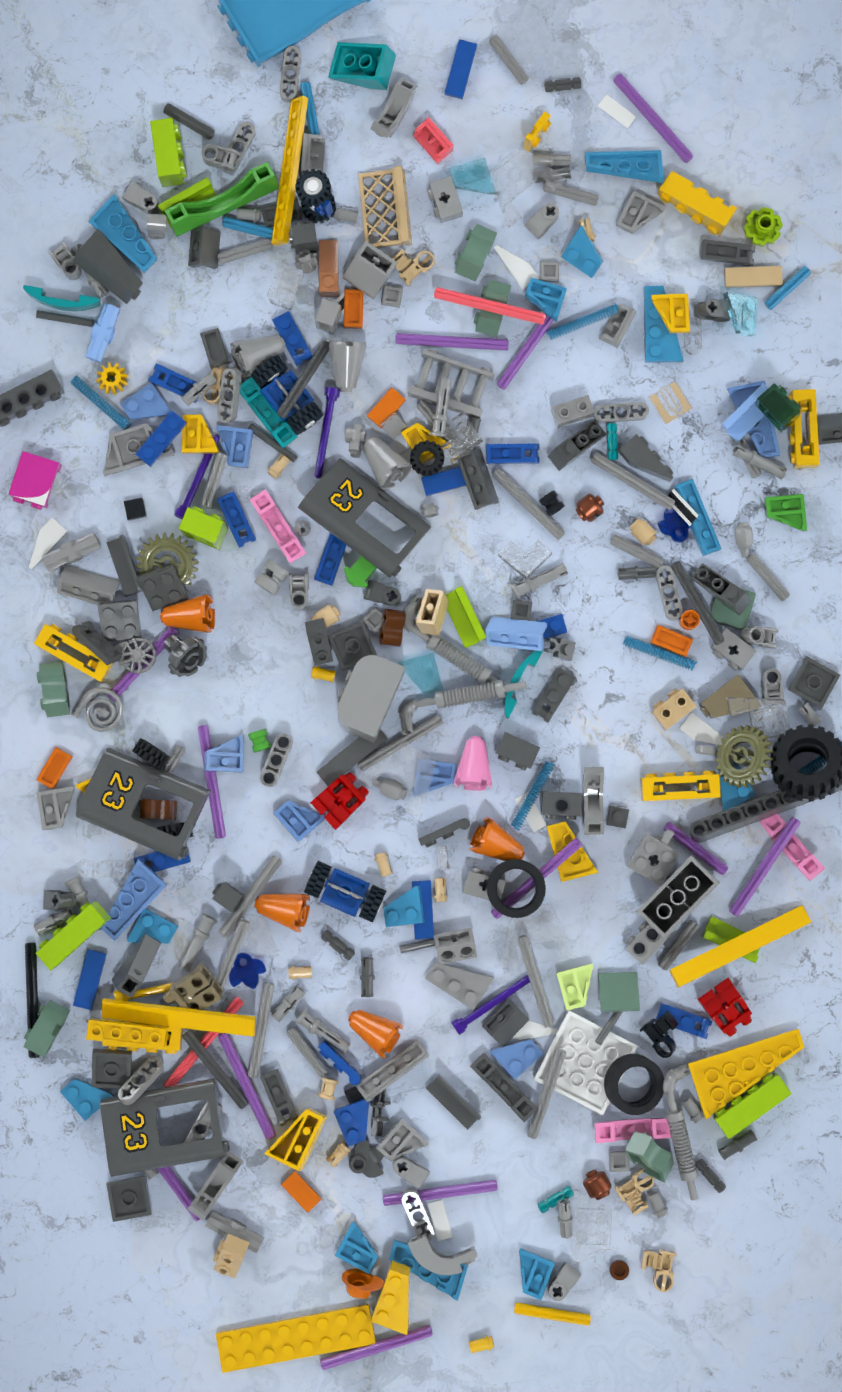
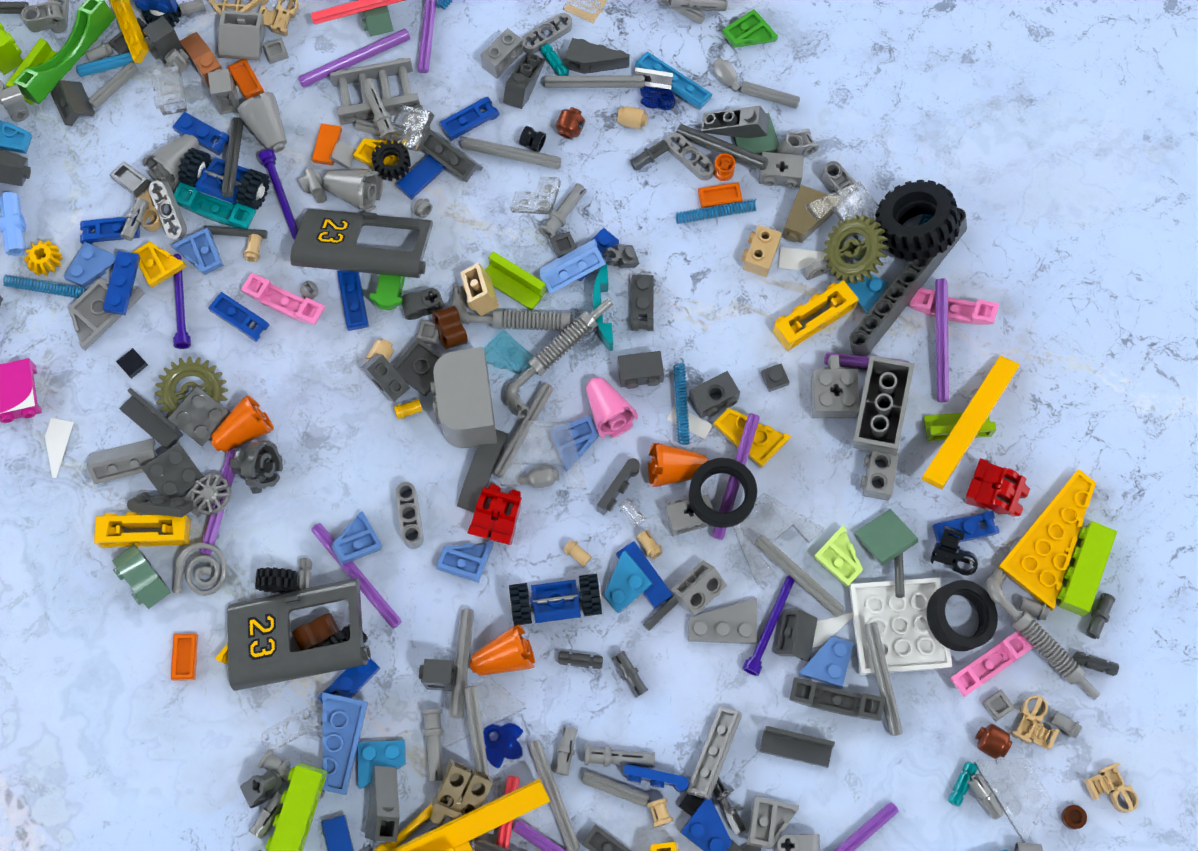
camera: 30 degrees left, 15 degrees down
(54, 806) = (205, 694): light grey wing -> none
(71, 552) = (87, 436): light grey piece -> none
(203, 528) = (208, 334): lime brick -> none
(214, 480) = (196, 293): light grey axle -> none
(259, 740) = (381, 506): bright green wheel -> none
(271, 577) = (304, 347): light grey wheel -> none
(299, 587) = (336, 344): light grey piece -> none
(299, 972) = (558, 711): tan pin -> none
(376, 1031) = (672, 721): orange cone -> none
(593, 800) = (750, 384): light grey arch -> none
(636, 551) = (636, 138): light grey axle -> none
(650, 1156) = (1025, 677): sand green brick -> none
(678, 945) = (912, 461): light grey axle -> none
(811, 716) = (886, 185): light grey pin -> none
(814, 682) = (872, 157): dark grey plate -> none

